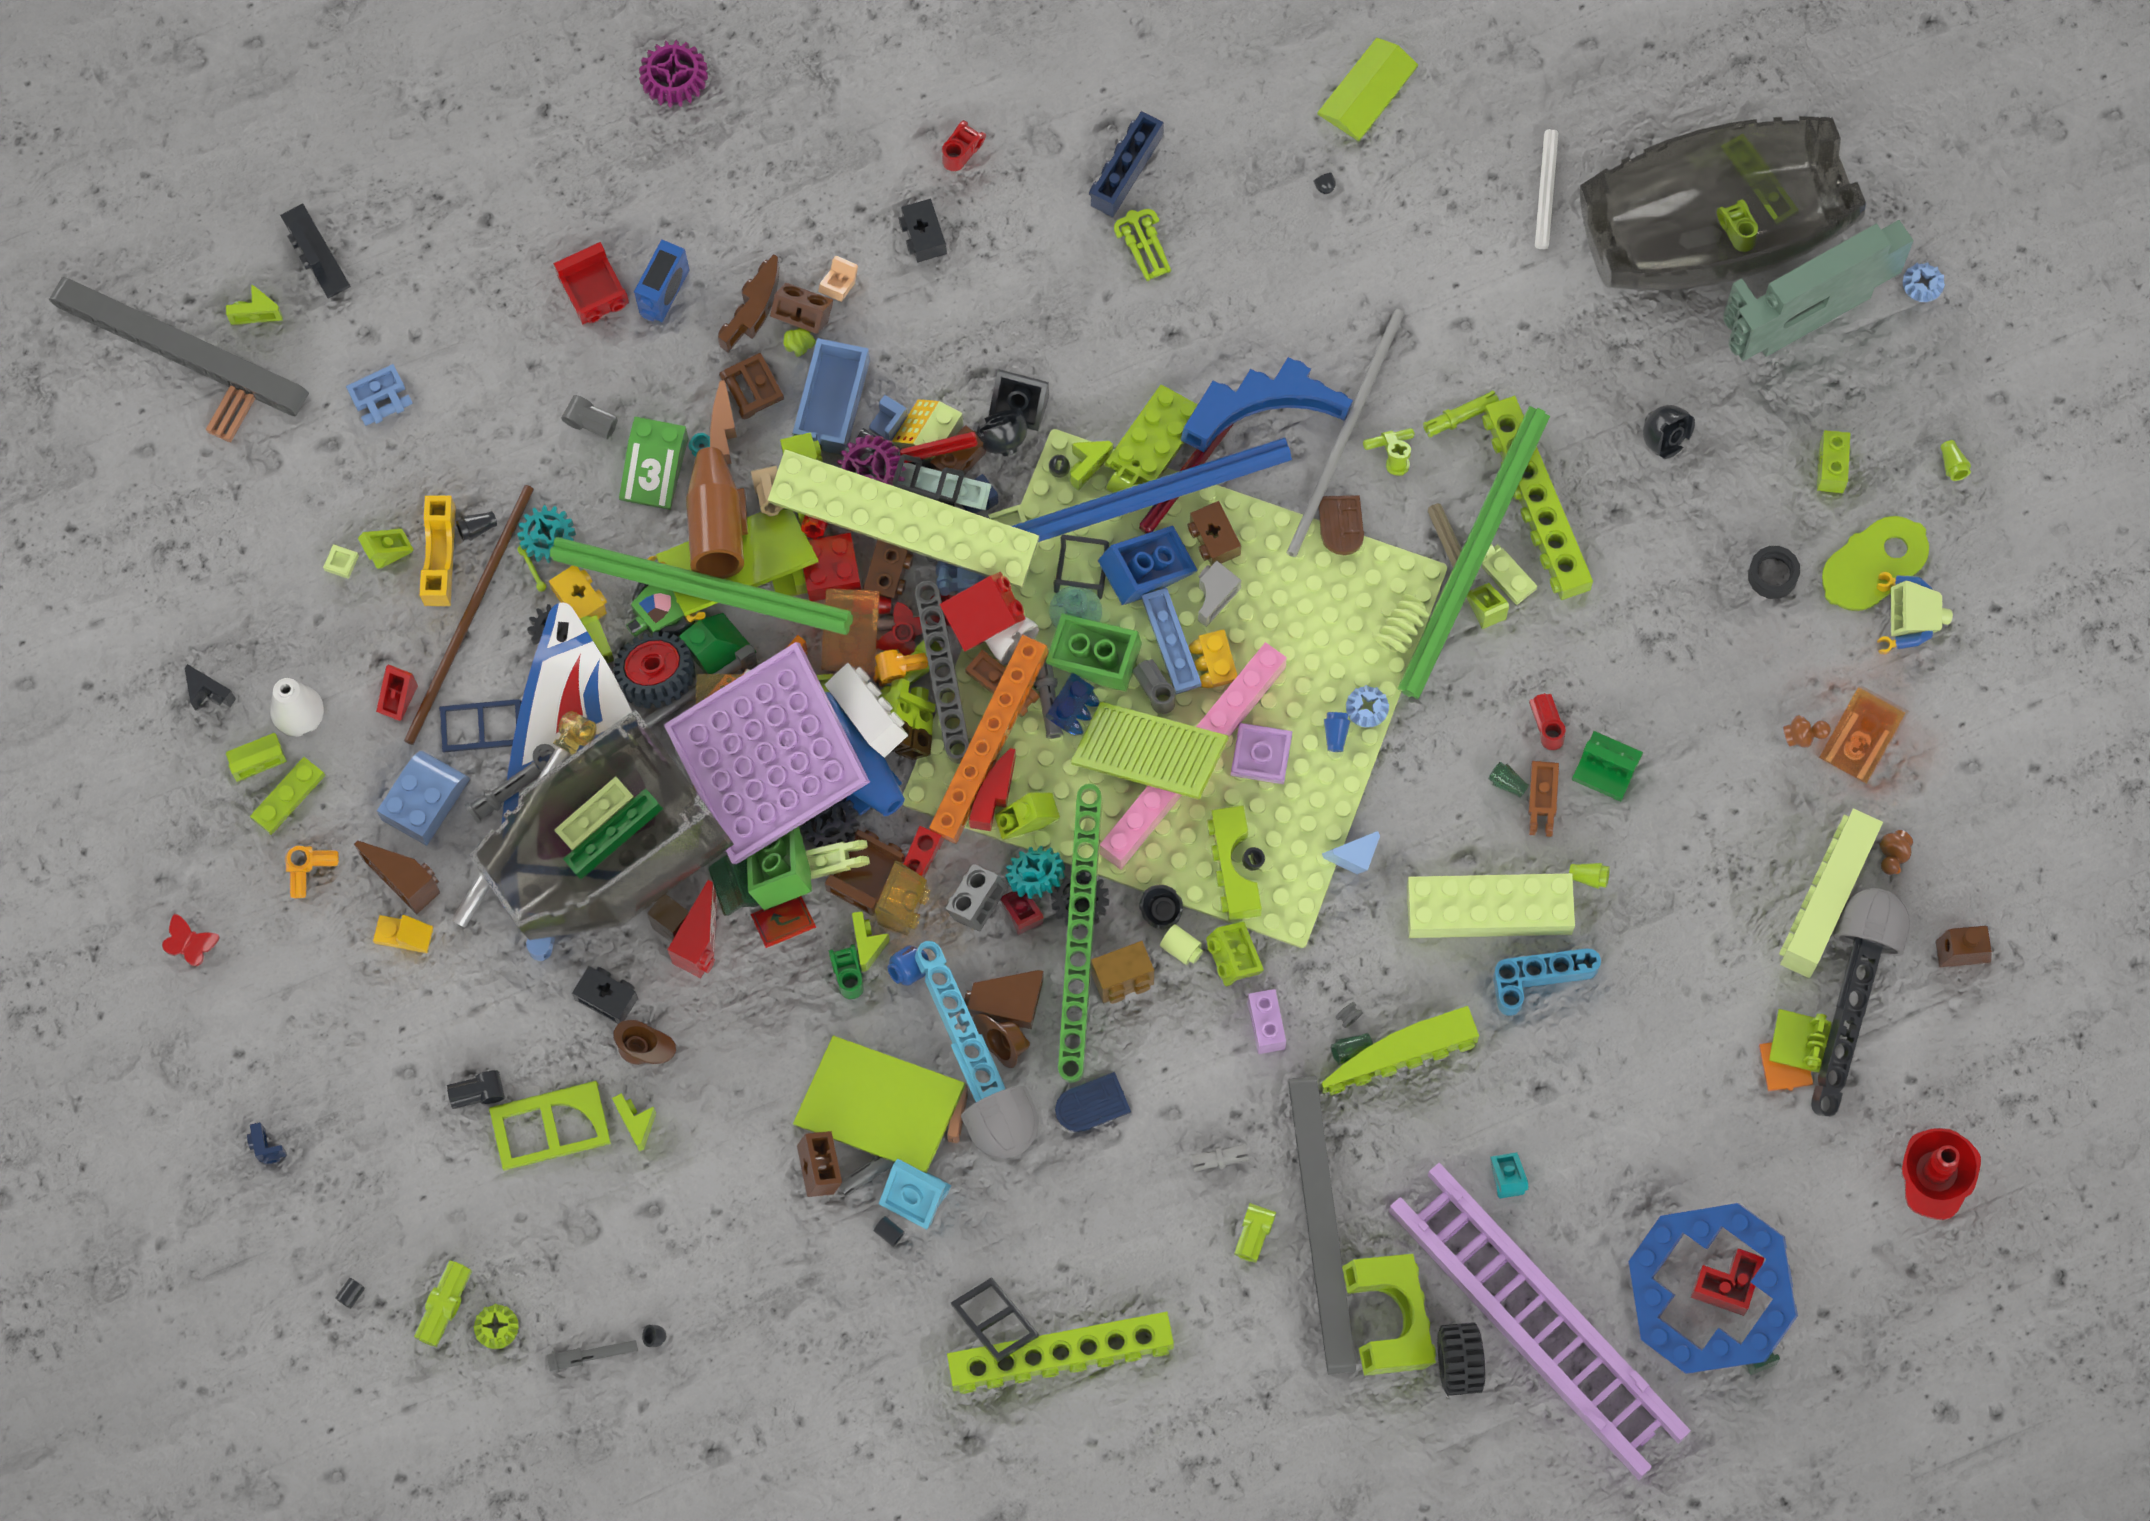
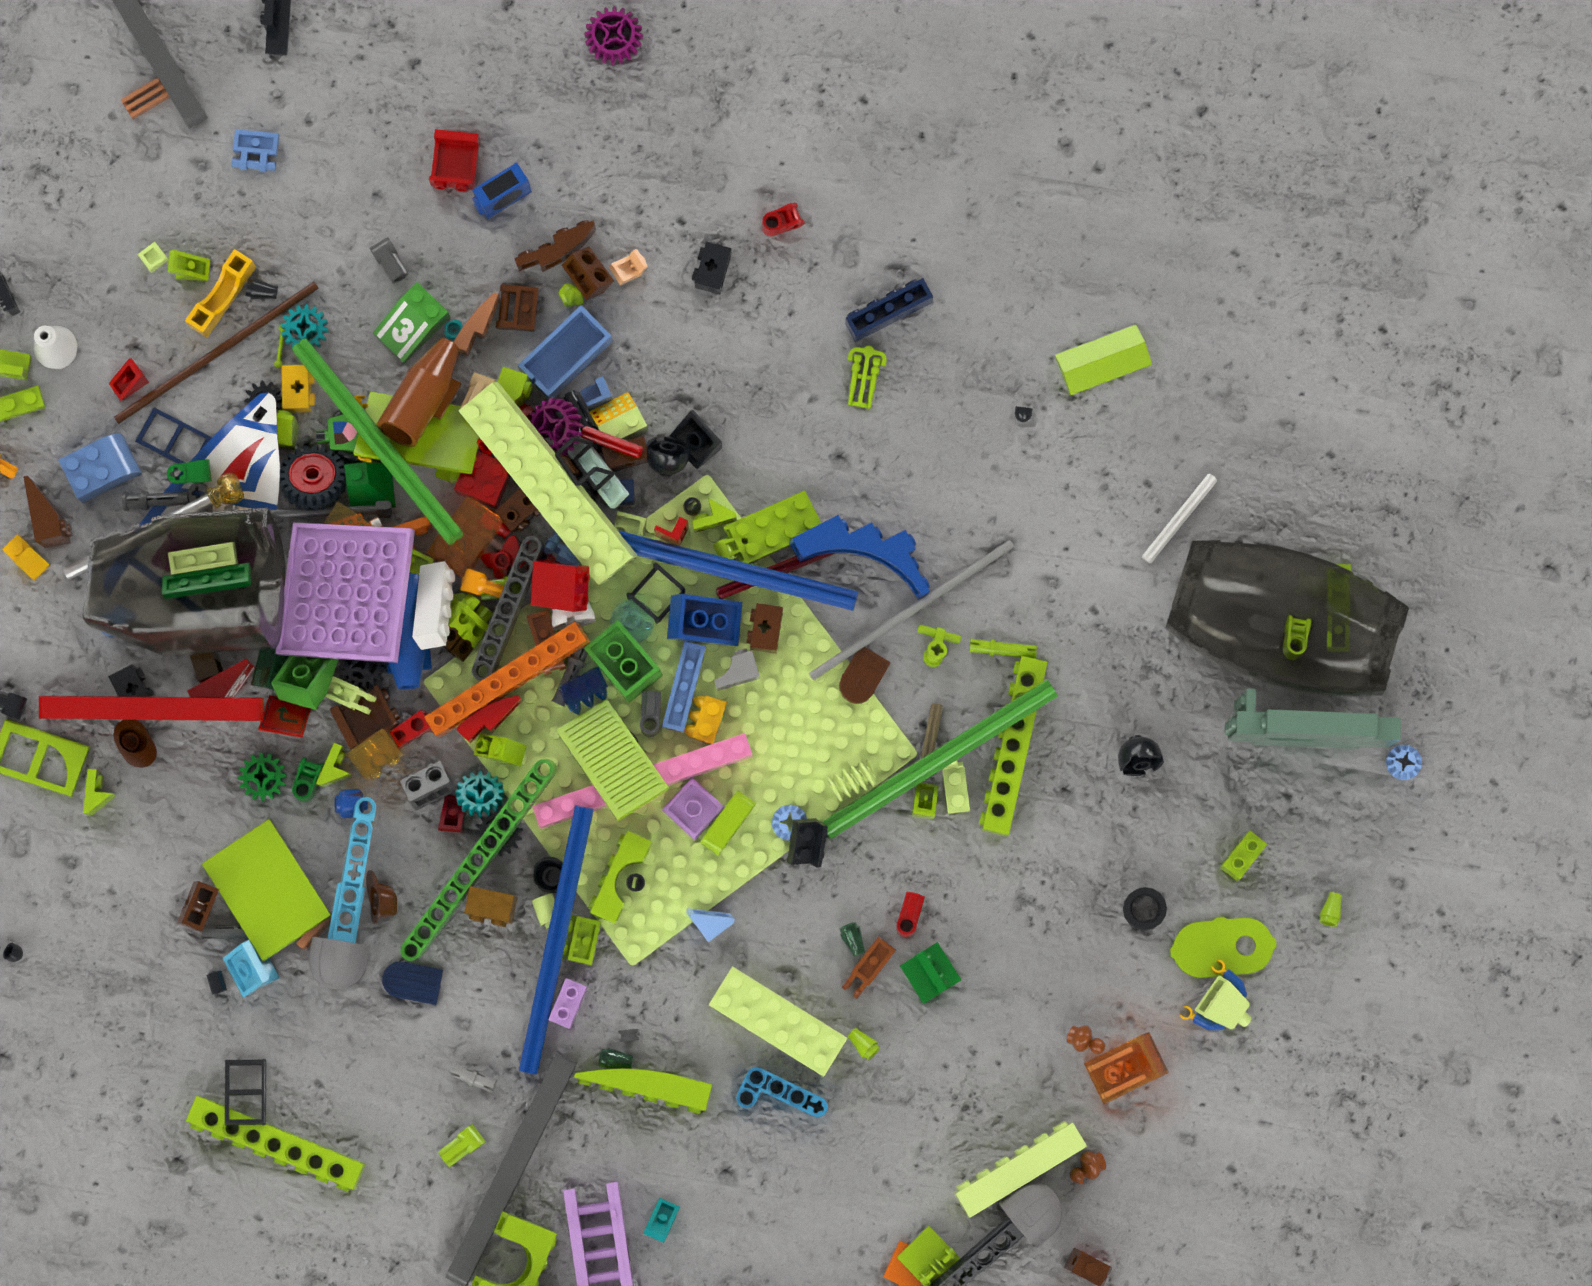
camera: 30 degrees right, 10 degrees up
(260, 310) = (212, 33): lime slope -> none
(528, 736) = (193, 472): none -> green piece
(640, 990) = (151, 708): none -> red beam
(806, 989) = (262, 787): none -> green gear
(1007, 998) = (401, 871): reddish brown slope -> none
(1059, 500) = (677, 535): none -> red panel
(1213, 962) = (556, 939): none -> blue axle
(1306, 743) = (728, 823): none -> lime beam
(1336, 730) = (755, 827): blue cone -> none
(1400, 712) = (807, 842): none -> black bracket

